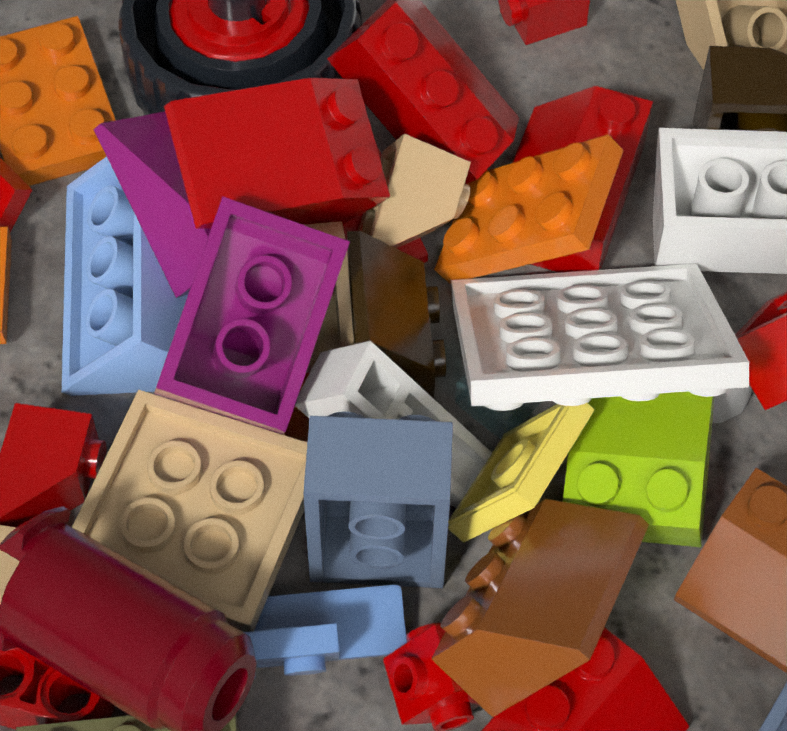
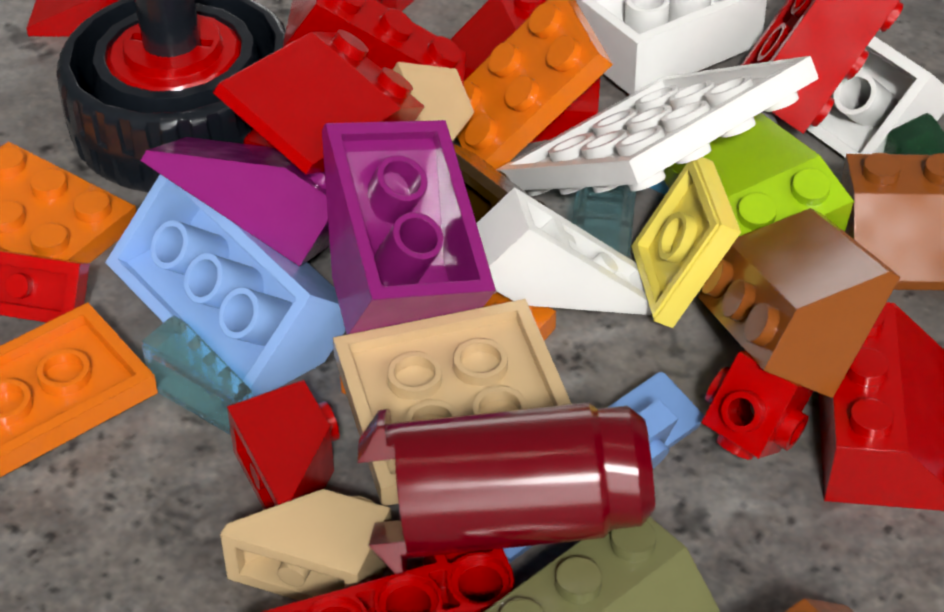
camera: 35 degrees left, 15 degrees down
(35, 338) = (192, 373): none -> clear light blue slope
(377, 499) = (617, 293): sand blue brick -> none

